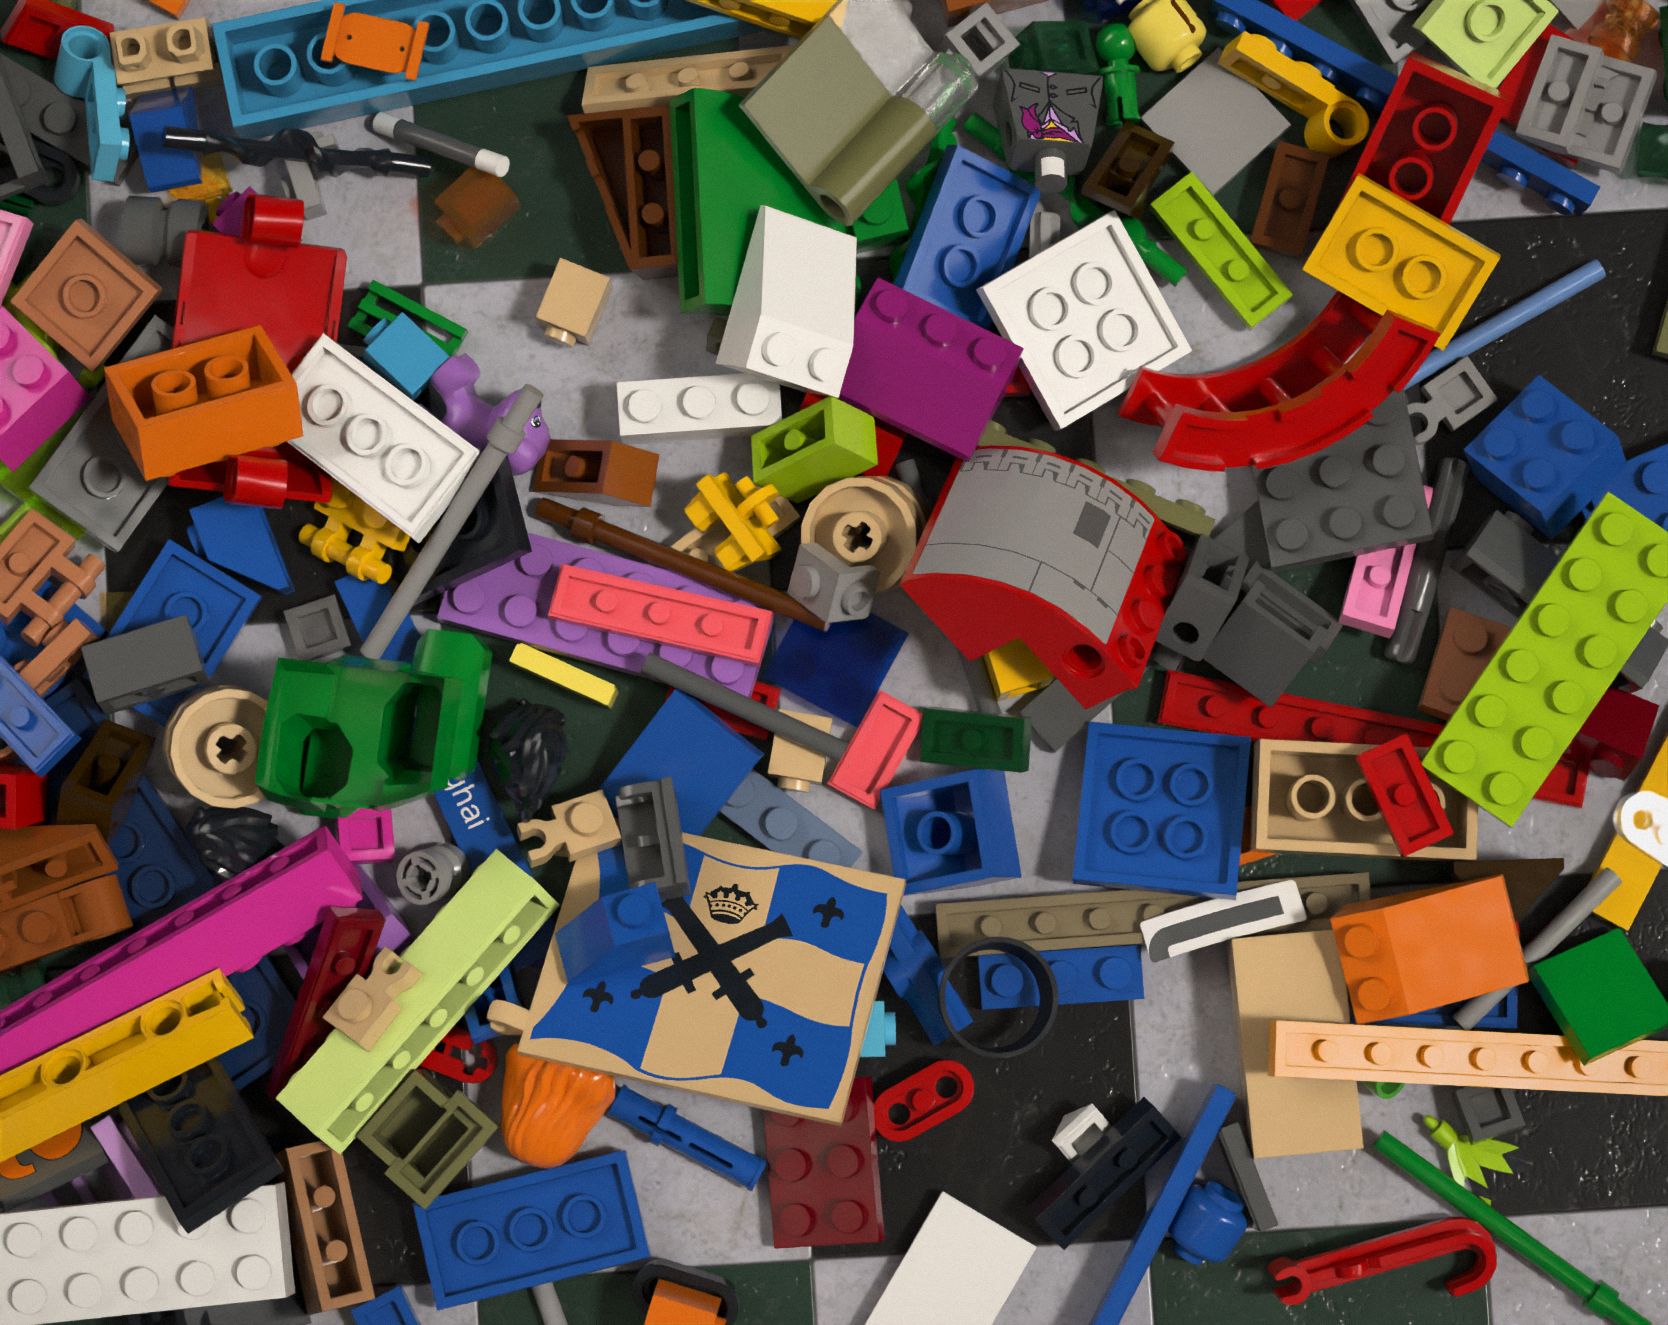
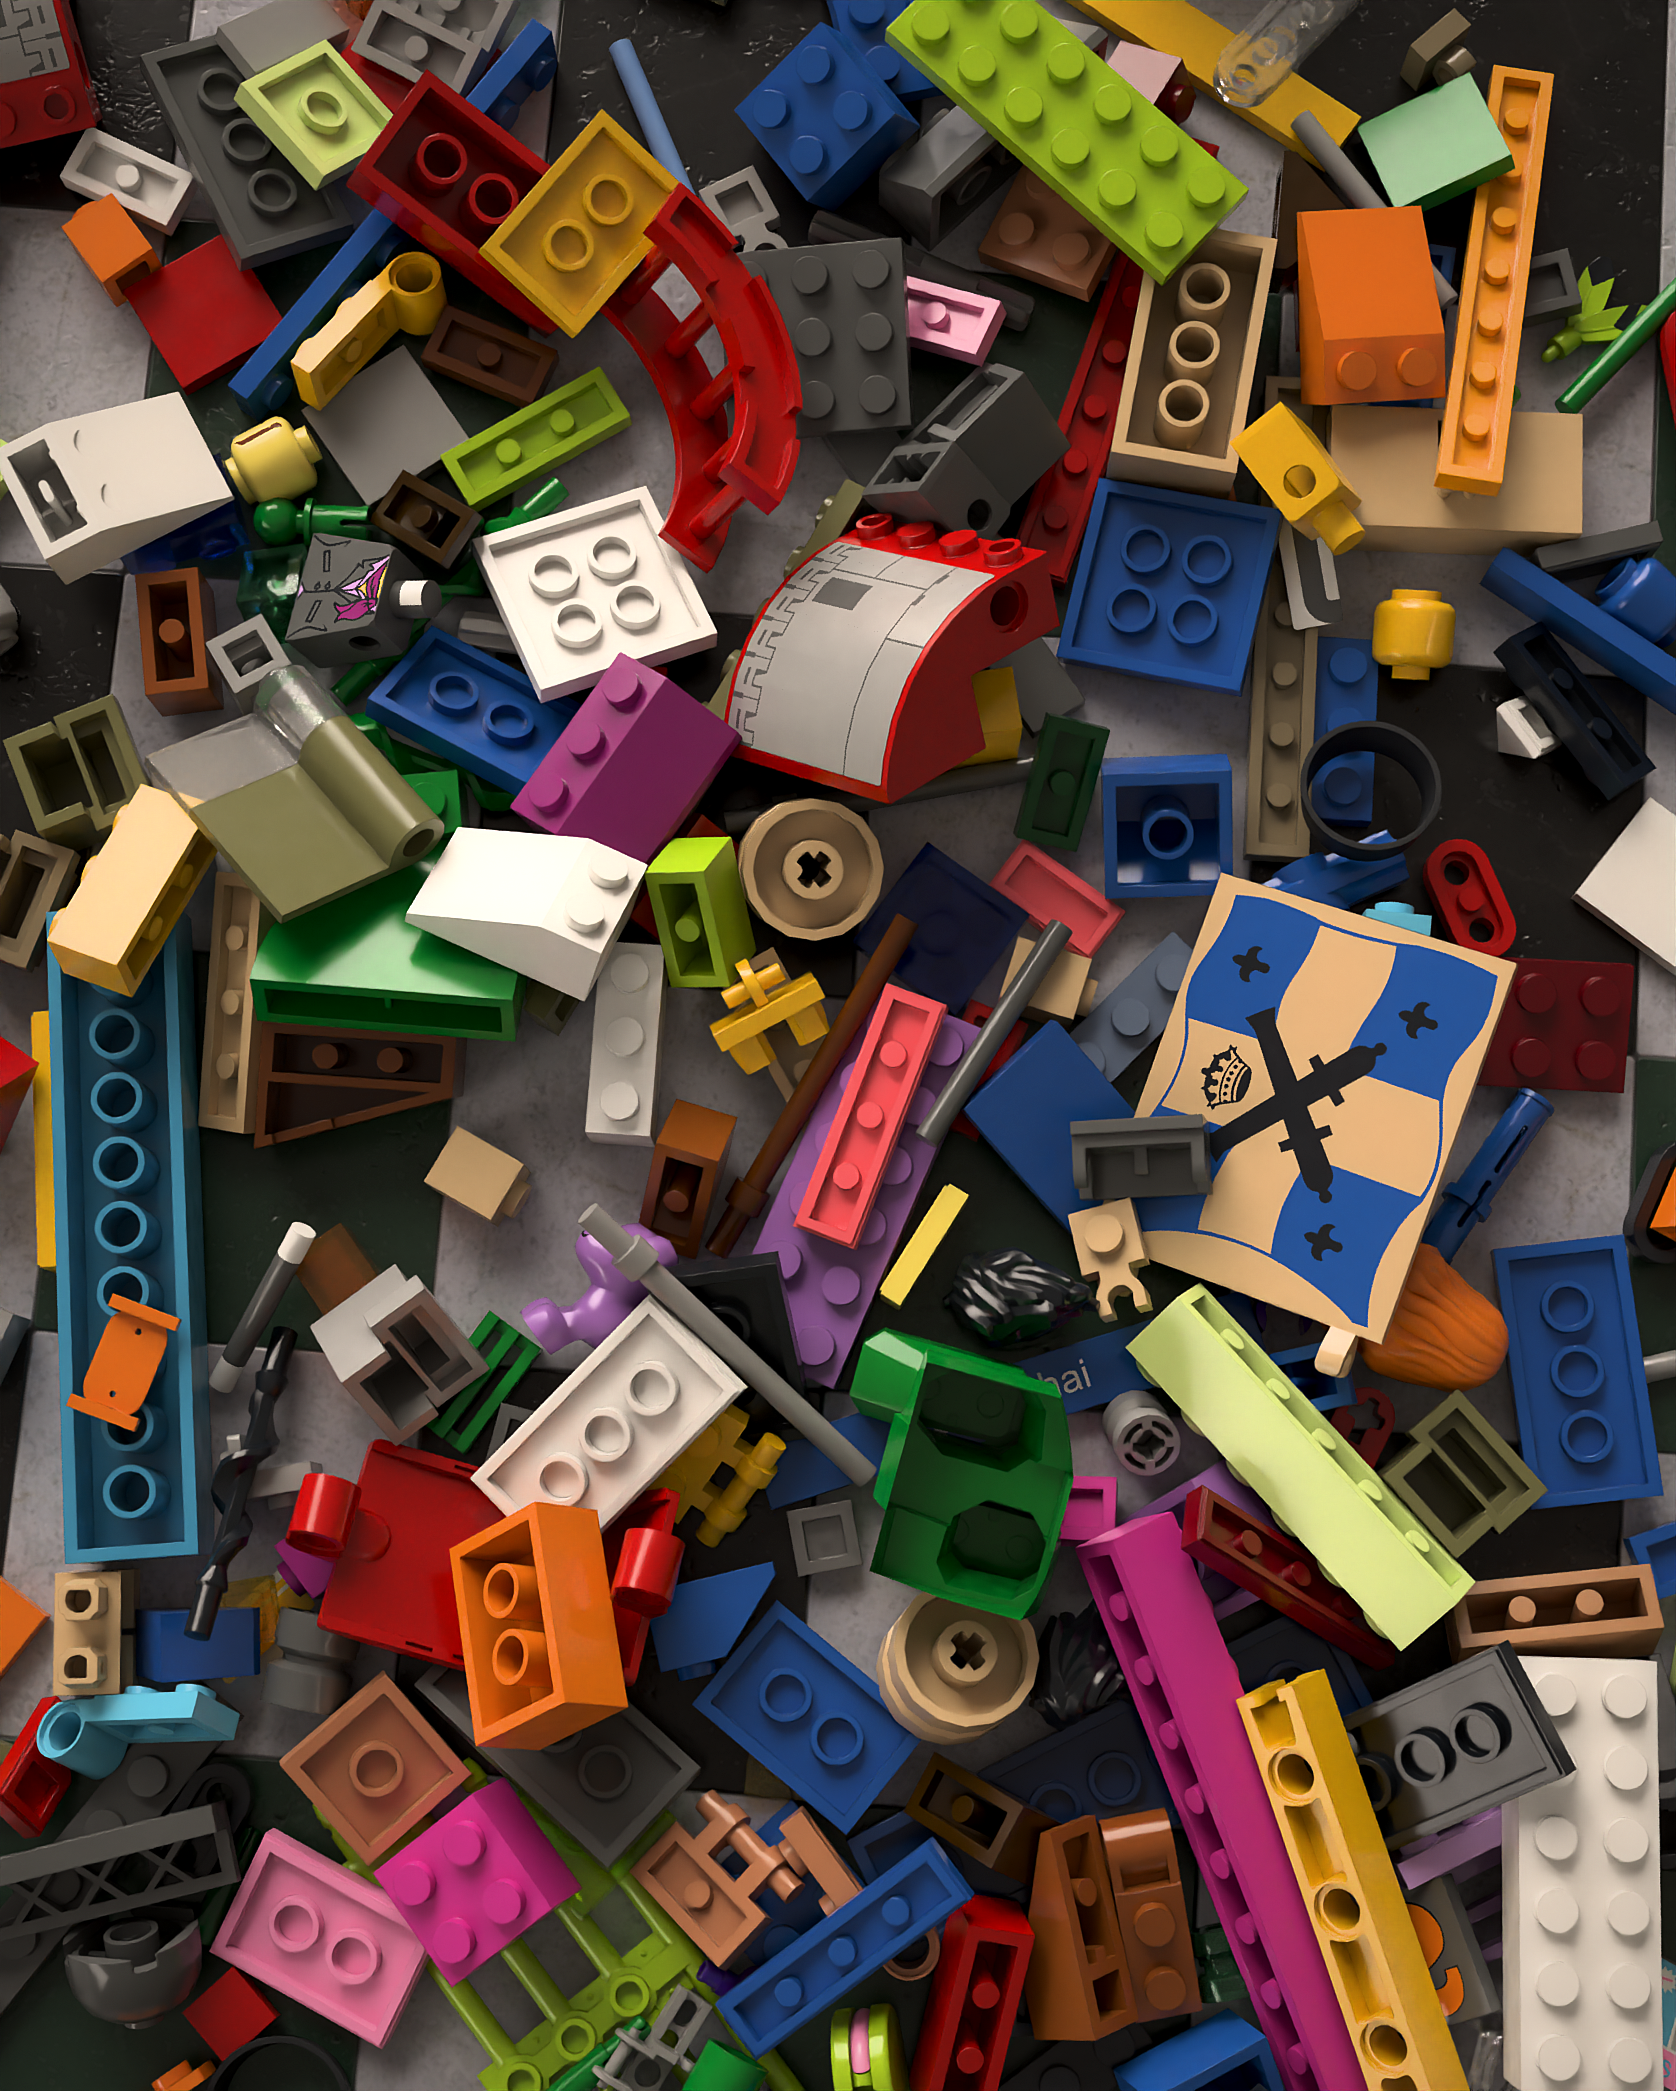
camera: 80 degrees left, 5 degrees down
(145, 665) = (845, 1750): dark grey hinge -> none
(370, 1005) = (1303, 1520): tan plate -> none
(403, 355) = (511, 1381): dark azure brick -> none
(415, 256) = (398, 1352): none -> light grey plate
(615, 935) = (1254, 1210): blue slope -> none
(830, 586) = (867, 907): light grey bracket -> none
(1152, 1026) = (1413, 633): none -> yellow head
(1258, 905) = (1301, 478): none -> yellow torso
(1404, 795) = (1199, 298): red plate -> none

